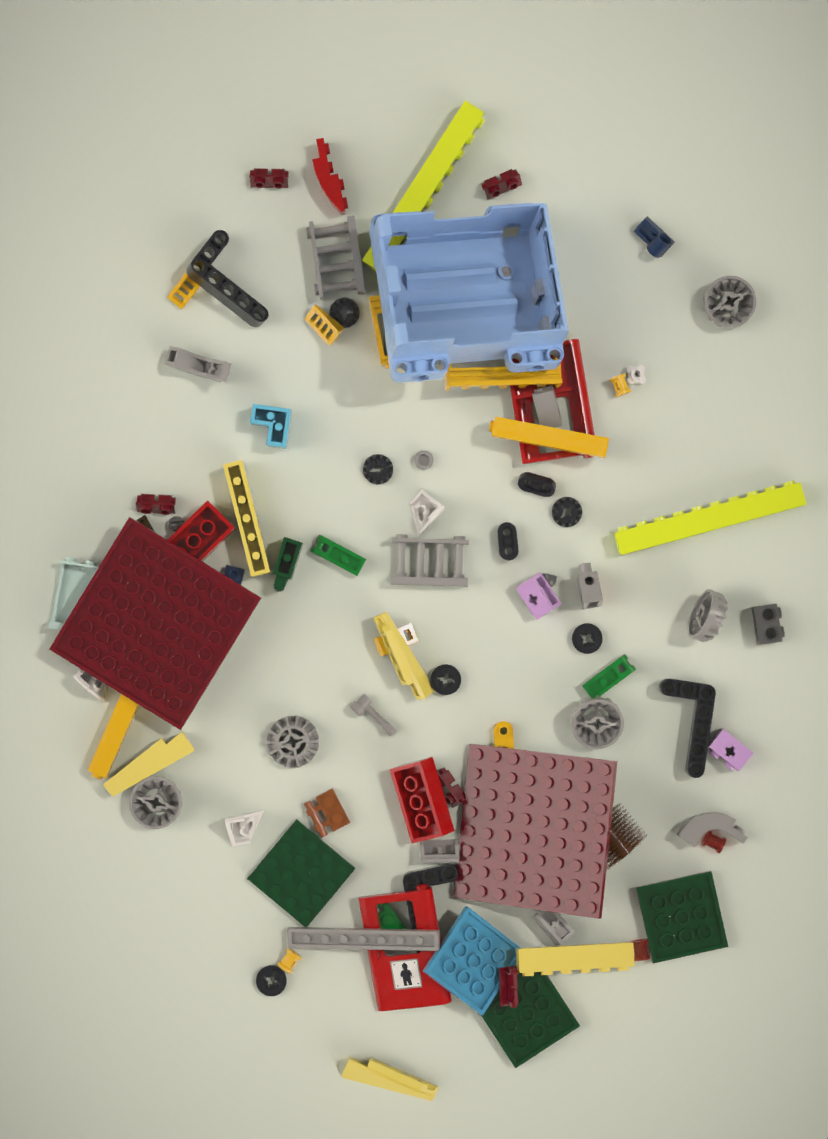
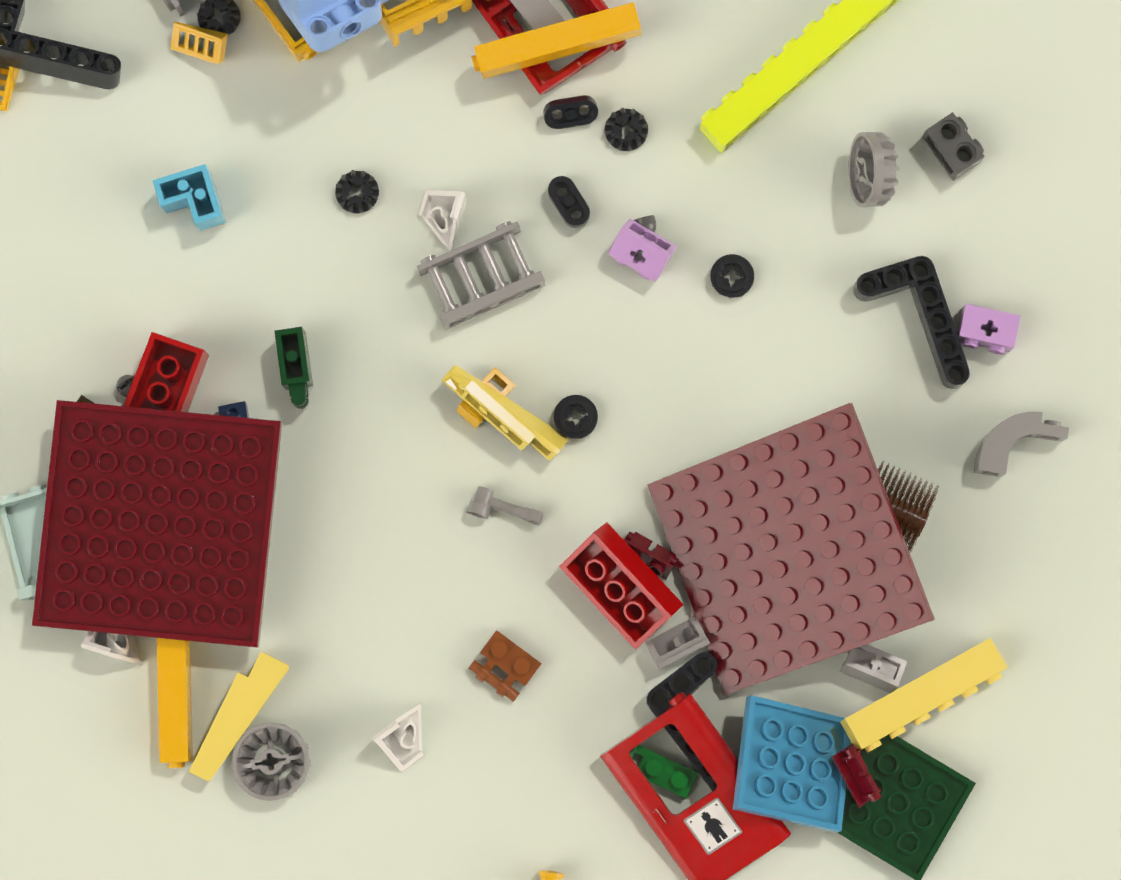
camera: 20 degrees left, 5 degrees down
(146, 504) = (78, 379): dark red hinge -> none
(197, 365) = (58, 170): light grey arch -> none
(247, 518) = (216, 333): light yellow brick -> none
(301, 873) = (509, 762): dark green plate -> none
(310, 737) = (434, 577): light grey gear -> none
(339, 555) = (359, 324): green plate -> none
(363, 938) = (634, 806): light grey plate -> none
(423, 460) = (410, 152): light grey tile -> none
(503, 740) = (686, 458): yellow plate -> none
(589, 594) = (703, 209): light grey torso -> none
(607, 728) = (818, 374): light grey gear -> none
(608, 677) = (784, 313): green plate -> none
(640, 949) = (1004, 643): clear red bush -> none
(682, 917) = (1035, 574): dark green plate -> none
(713, 842) = (1027, 456): clear red bush -> none

